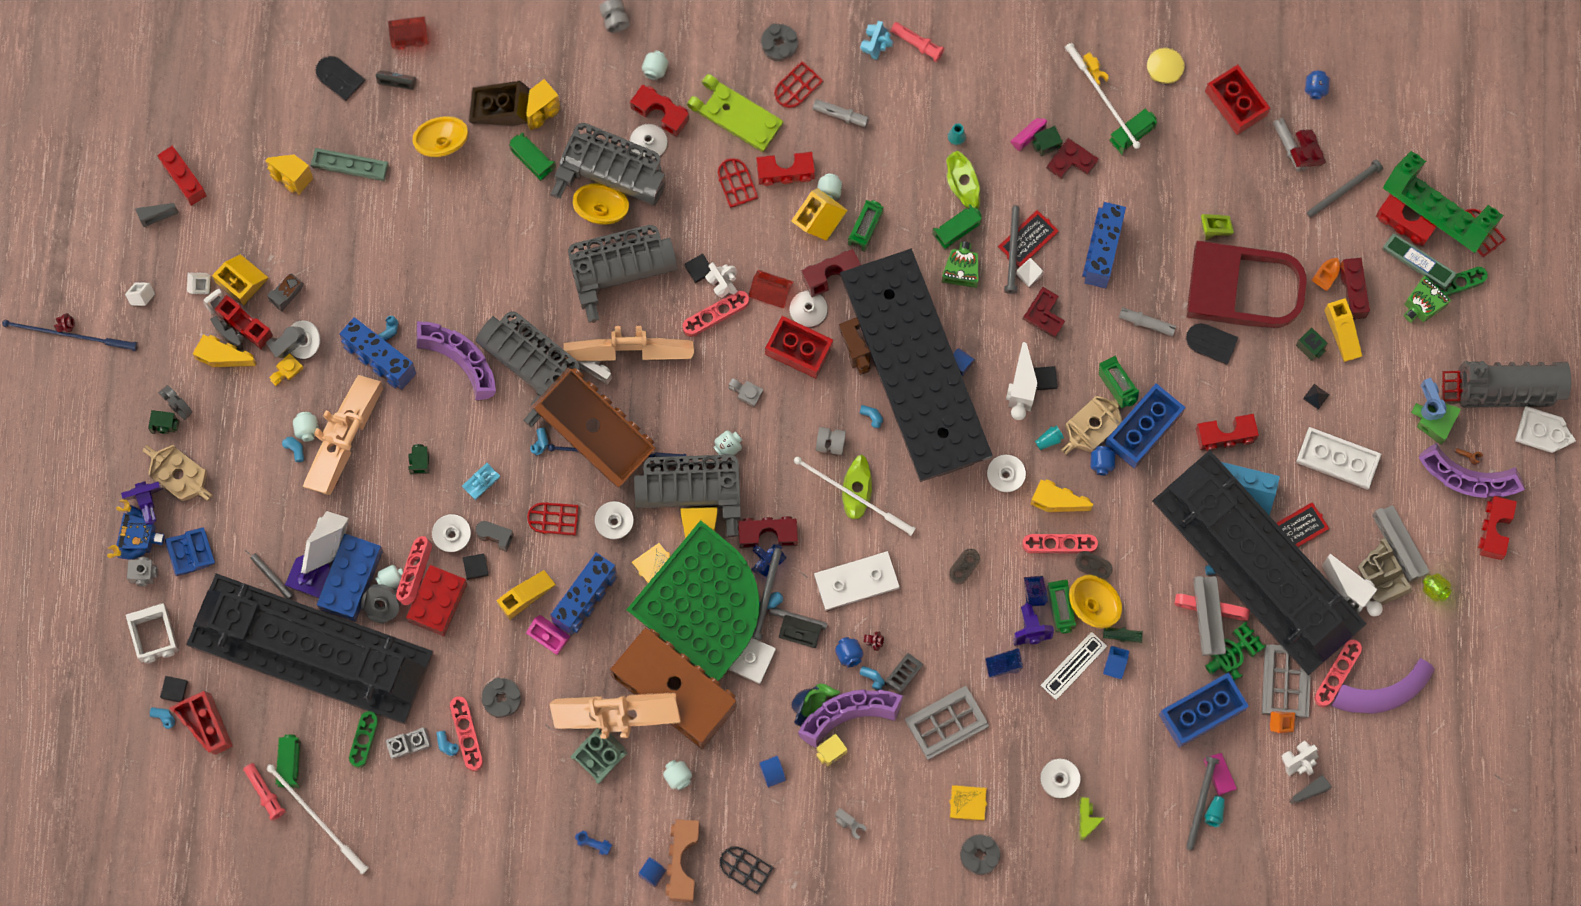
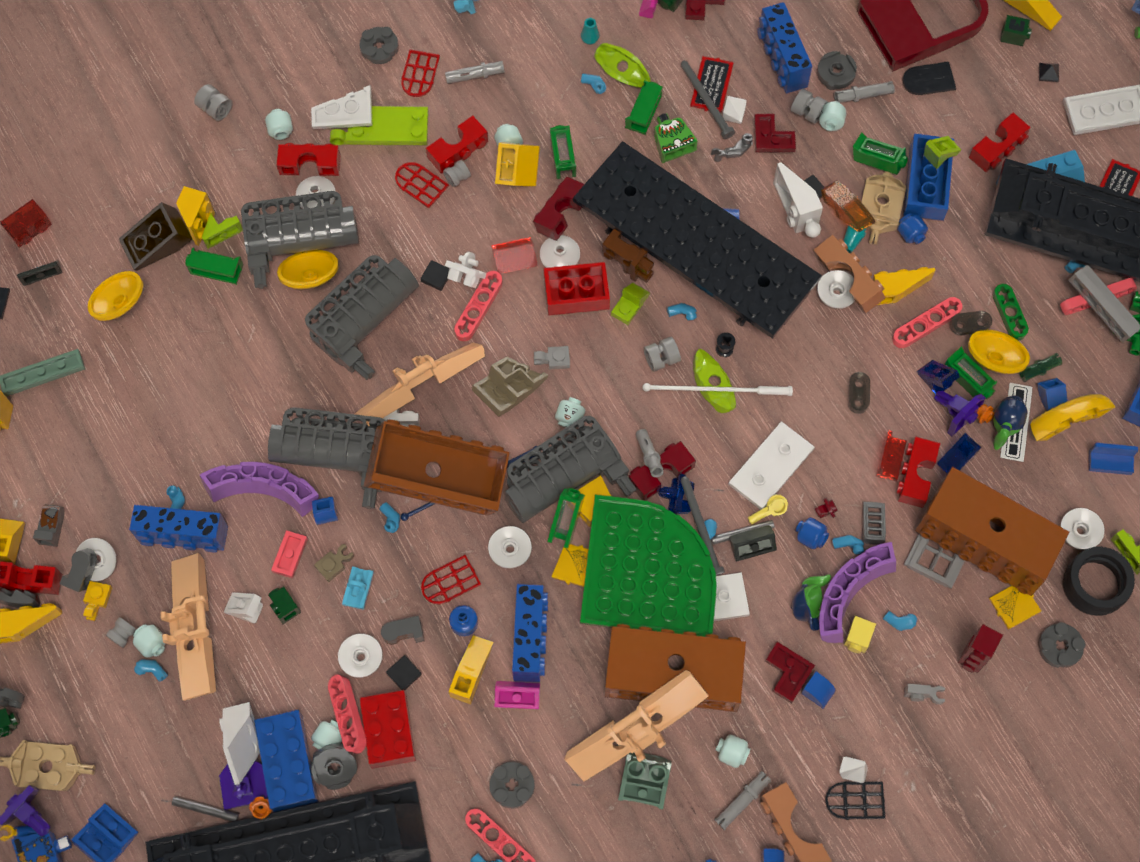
camera: 30 degrees left, 5 degrees down
(289, 407) = (121, 632): none -> light grey wheel
(307, 603) = (257, 812): none -> orange plate
(390, 443) = (244, 606): none -> white slope
(447, 423) = (289, 554): none -> coral plate
(473, 451) = (331, 564): none -> dark tan plate
(493, 406) = (324, 510): none -> blue brick
(546, 560) = (463, 627): none -> blue head
(548, 129) = (217, 233): none -> lime slope
(661, 815) = (743, 800): none -> light grey pin
(669, 523) = (566, 516): none -> green window
(696, 392) = (507, 385): none -> dark tan slope
(713, 88) = (347, 111): none -> white wing
(756, 844) = (853, 769): none -> white slope
(764, 517) = (651, 457): none -> light grey pin
(764, 745) = (795, 670): none -> dark red plate
(769, 192) = (456, 173): none -> light grey wheel
(837, 613) = (776, 506): none -> light yellow plate
(838, 382) = (630, 303): none -> lime slope
(869, 761) = (901, 623): none -> dark azure arm
(890, 460) = (724, 350): none -> black bush
(908, 816) = (980, 649): none -> dark red arch
(934, 180) = (595, 81): none -> dark azure arm
(953, 631) = (891, 457): none -> clear red panel
(977, 643) = (913, 489): none -> red arch
(993, 763) = (960, 523): none -> dark orange piece
(1010, 308) = (736, 151): none -> flat silver arm
(1022, 487) = (836, 257): none -> nougat arch
(1050, 802) = (1112, 560): none -> black tyre
(1051, 643) = (985, 413): none -> orange plate
(1060, 410) = (847, 206): none -> clear orange slope
(1067, 659) = (1009, 419): none -> dark blue hair
(1090, 305) = (807, 105): none -> light grey wheel
(1105, 327) = (832, 116): none -> light aqua head
(1118, 684) = (1075, 410): none -> yellow brick
(1125, 741) = (1112, 458): none -> blue panel
(1131, 561) = (1009, 321): none -> green beam
(1146, 282) = (836, 80): none -> dark grey plate
(1165, 410) = (939, 149): none -> lime slope

